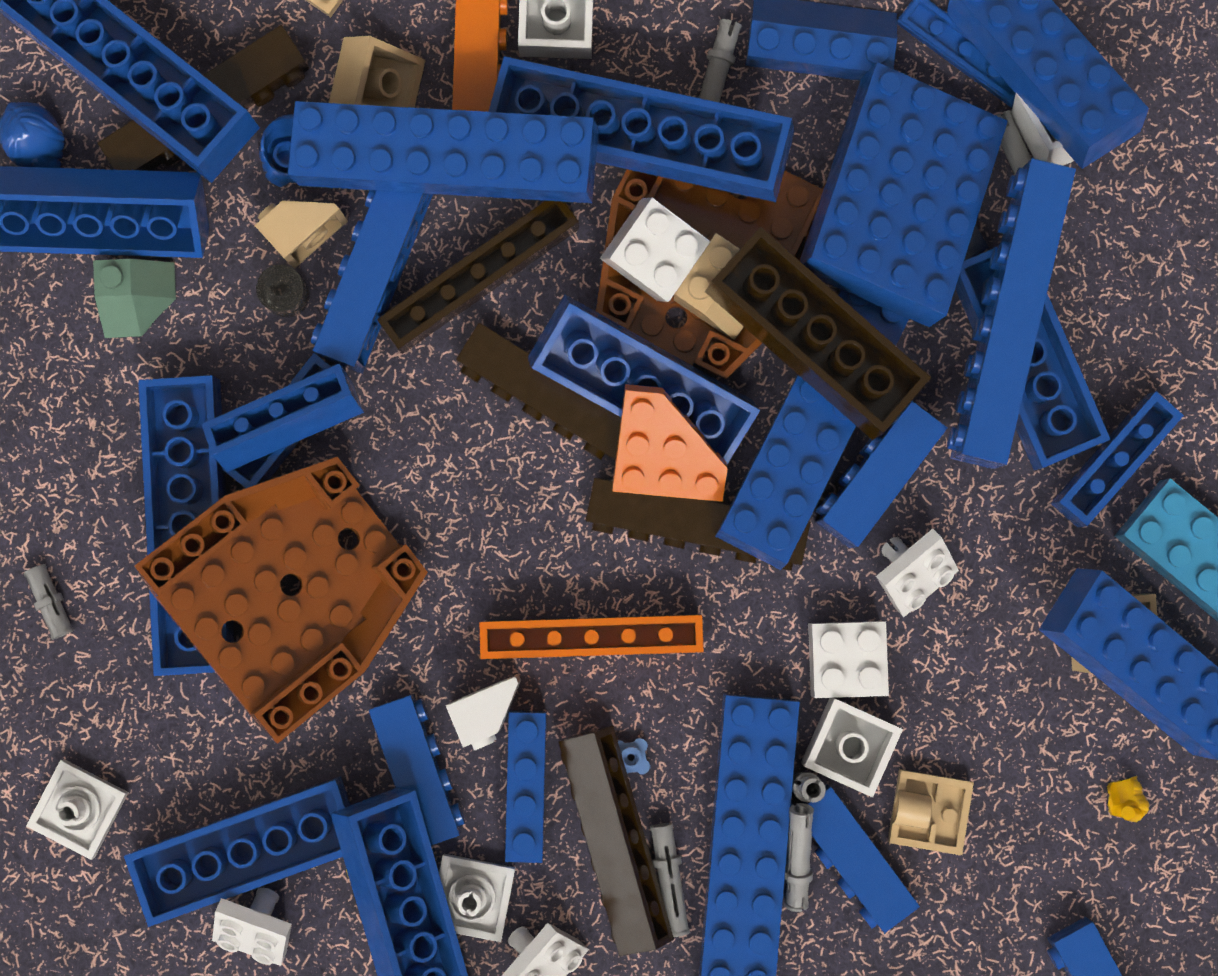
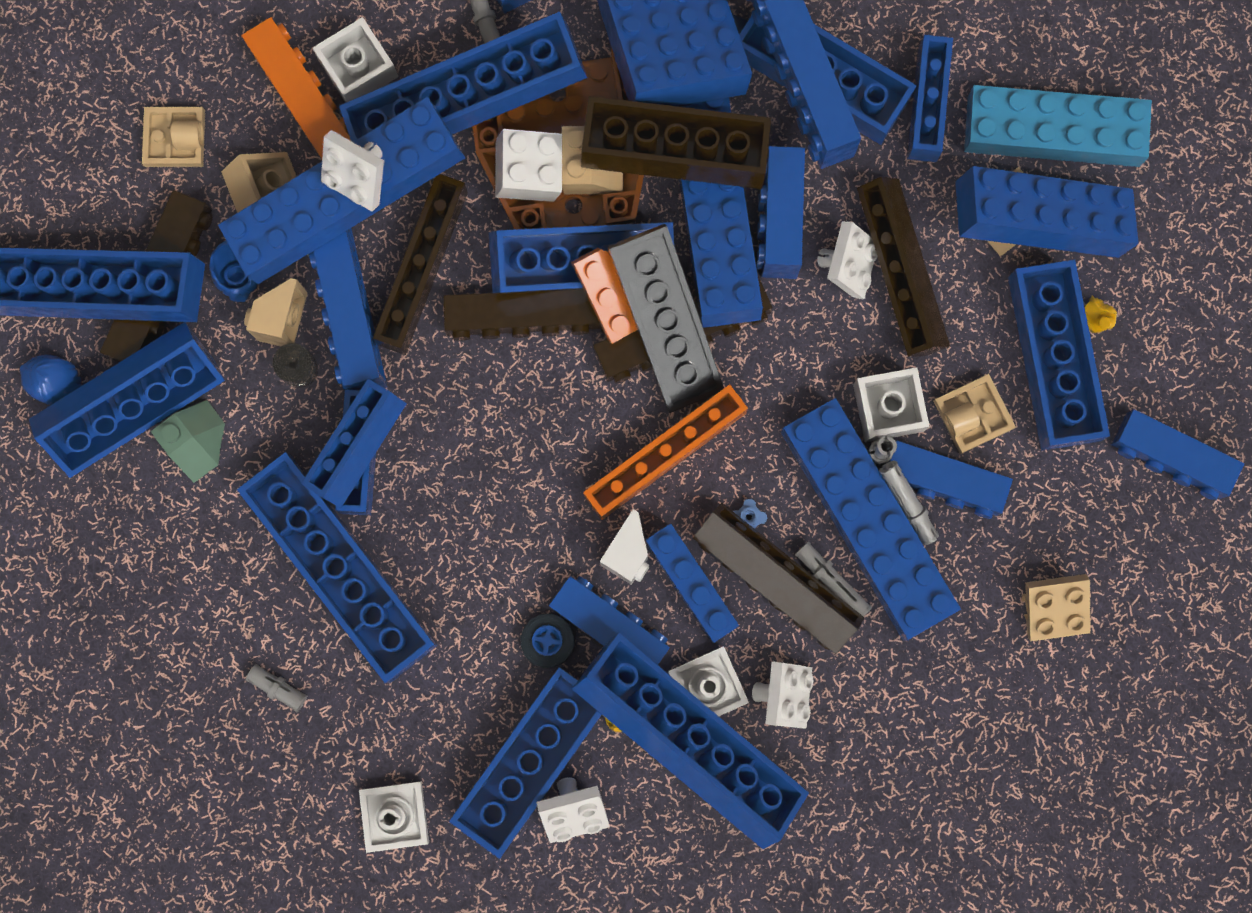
camera: 30 degrees left, 5 degrees down
(298, 646) = (387, 569): dark orange wedge -> none
(336, 750) = (547, 631): none -> black wheel
(462, 146) = (352, 169): none -> white plate
(683, 505) = (666, 317): none -> plate
(848, 659) = (847, 349): white brick -> none
(964, 614) = (903, 267): none -> dark brown brick
(1056, 814) = (1058, 355): none -> blue brick

